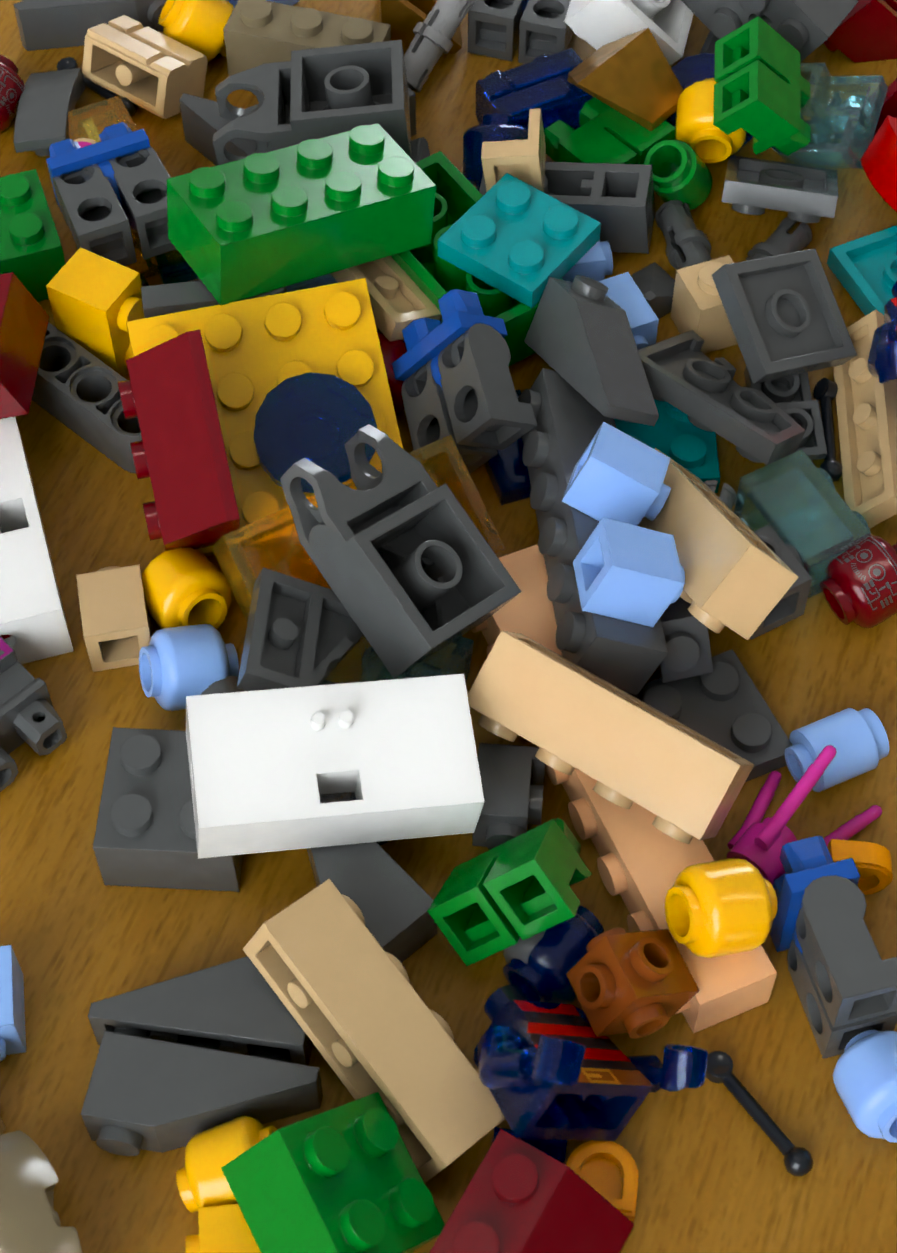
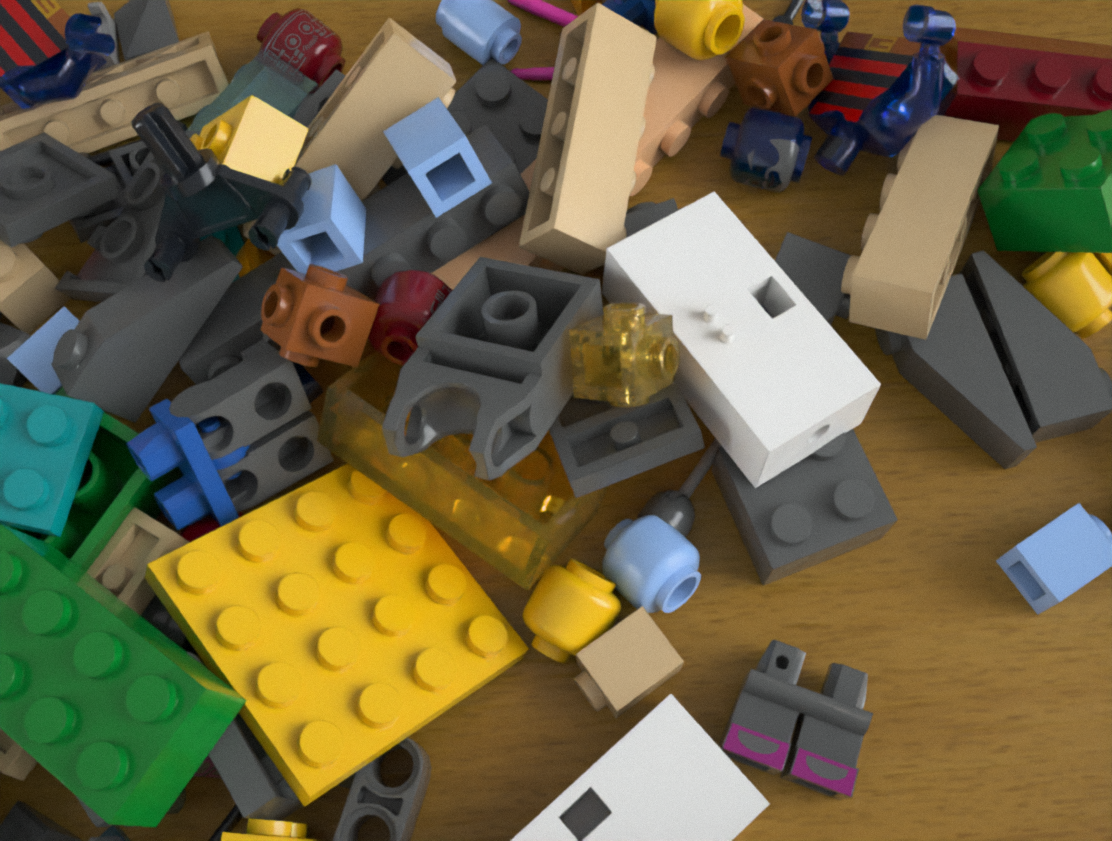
camera: 110 degrees left, 15 degrees up
(180, 444) = (446, 646): dark red slope -> none
(310, 420) = (356, 546): clear blue tile -> none
(343, 633) = (623, 355): none -> clear yellow brick
(504, 523) = (405, 306): none -> dark red head
(511, 892) = (749, 172): green hips -> none
(517, 442) = (317, 317): none -> dark orange brick
(670, 365) = (210, 196): none -> black axle
(711, 439) = (254, 139): none -> yellow brick

